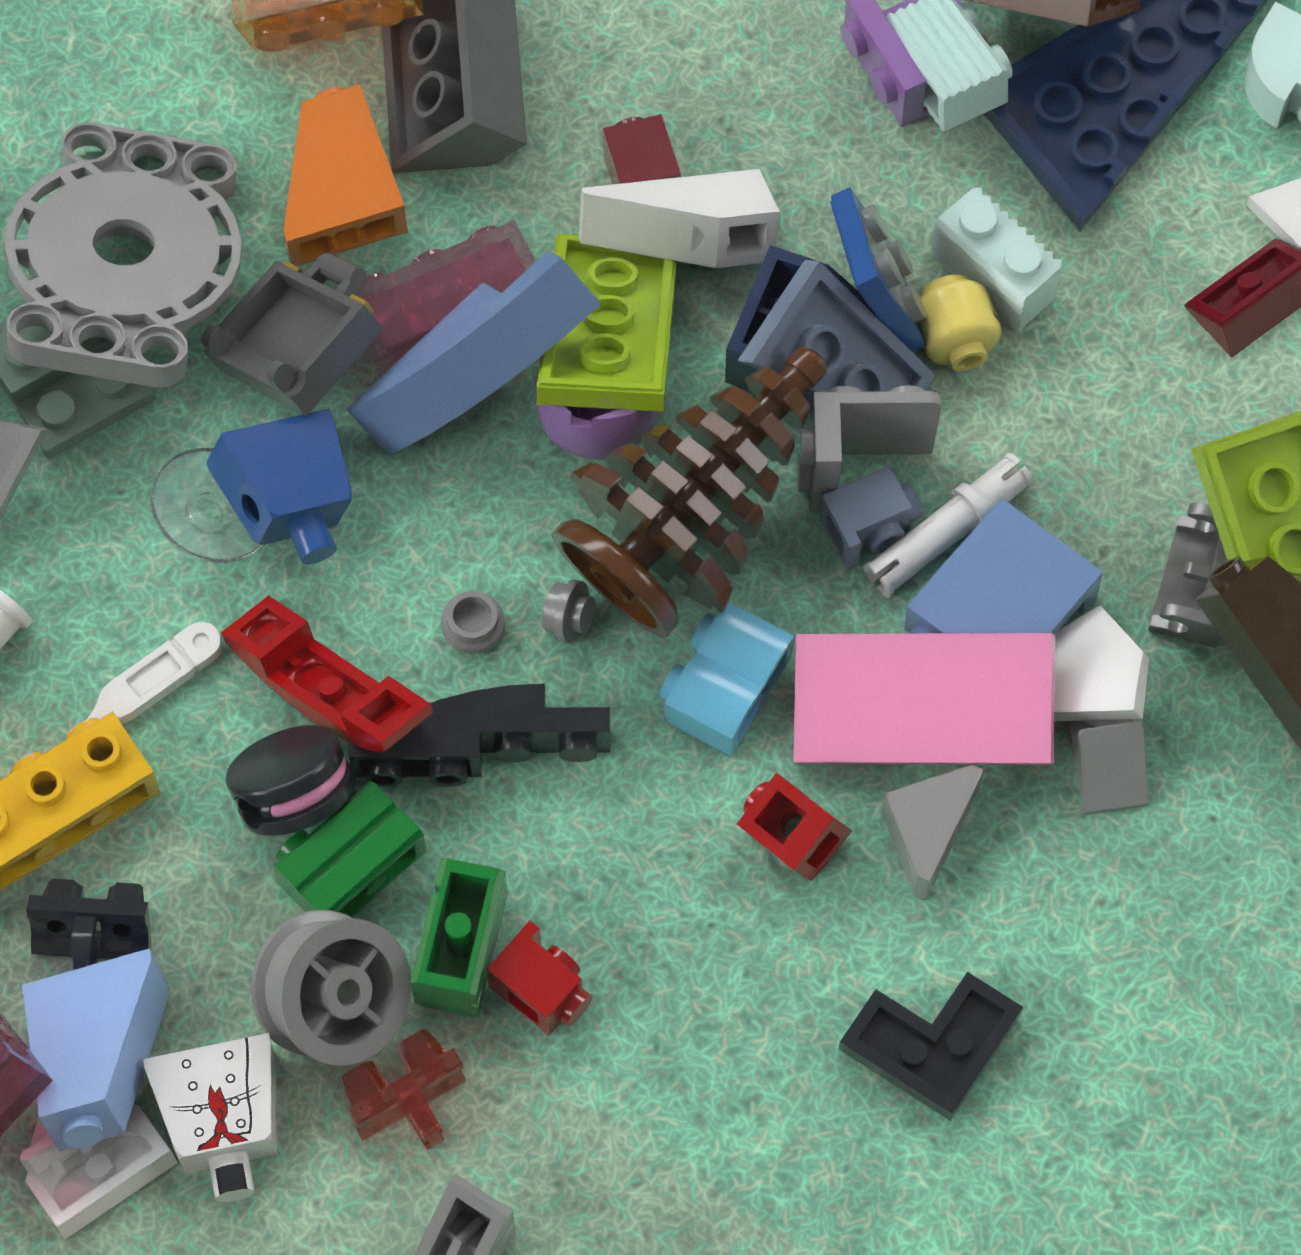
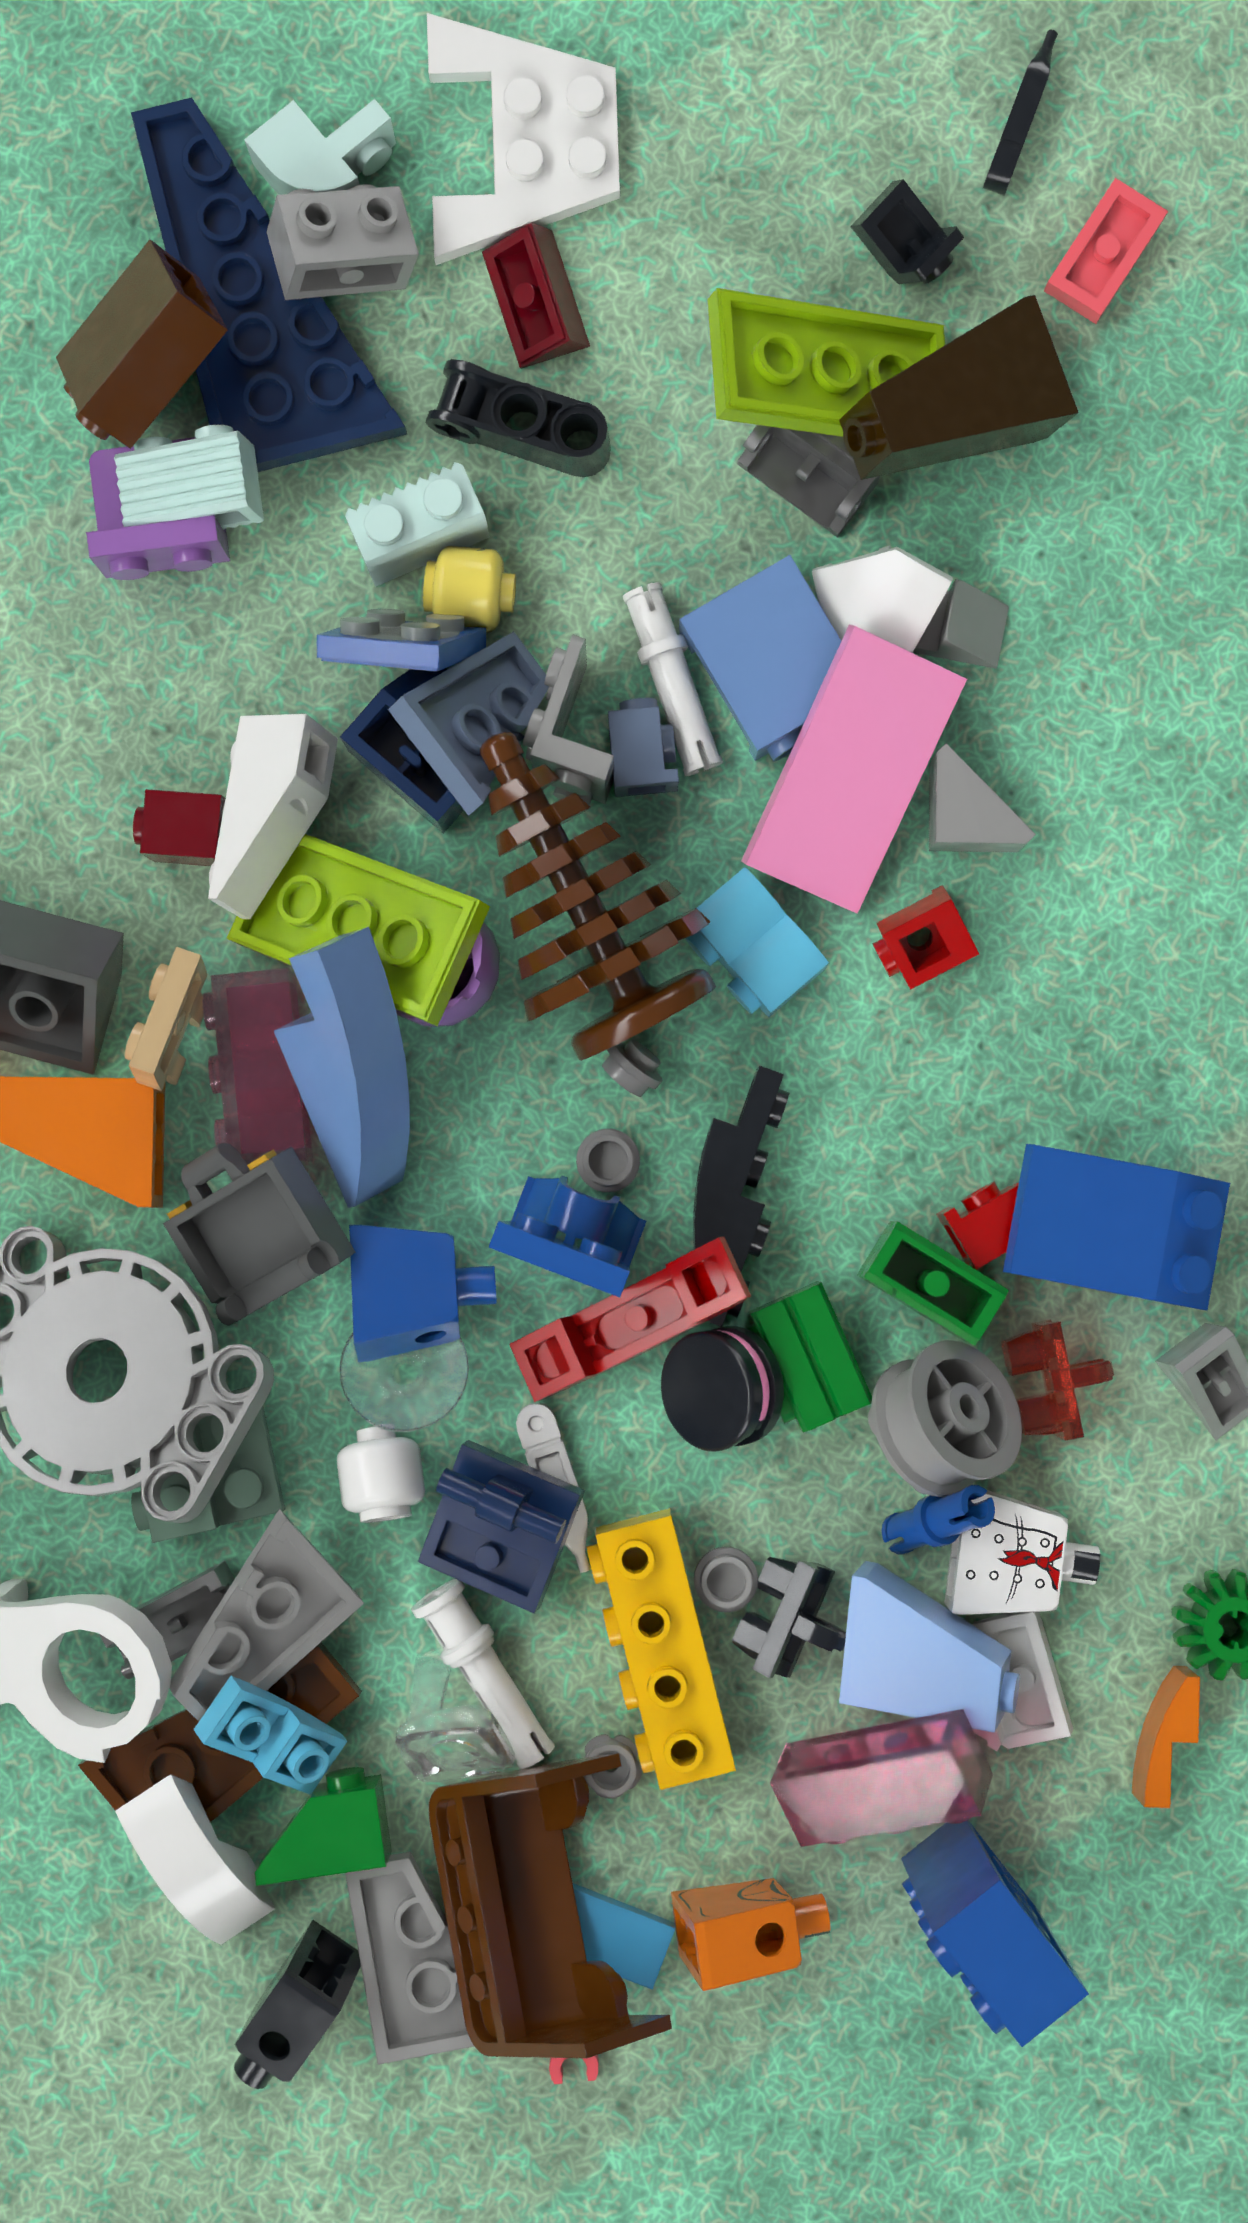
camera: 70 degrees left, 20 degrees up
(94, 634) = (500, 1525): none -> dark blue plate
(106, 519) = (380, 1475): none -> white head
(107, 858) = (725, 1579): none -> light grey plate
(229, 1015) = (938, 1520): none -> blue pin
(380, 588) = (605, 1226): none -> blue plate
(478, 195) = (176, 1003): none -> tan plate
(574, 1081) = (1116, 1226): none -> blue slope
(938, 1059) = (1188, 890): black plate -> none
(1130, 281) = (479, 404): none -> black piece
(1222, 109) = (341, 241): none -> light grey brick

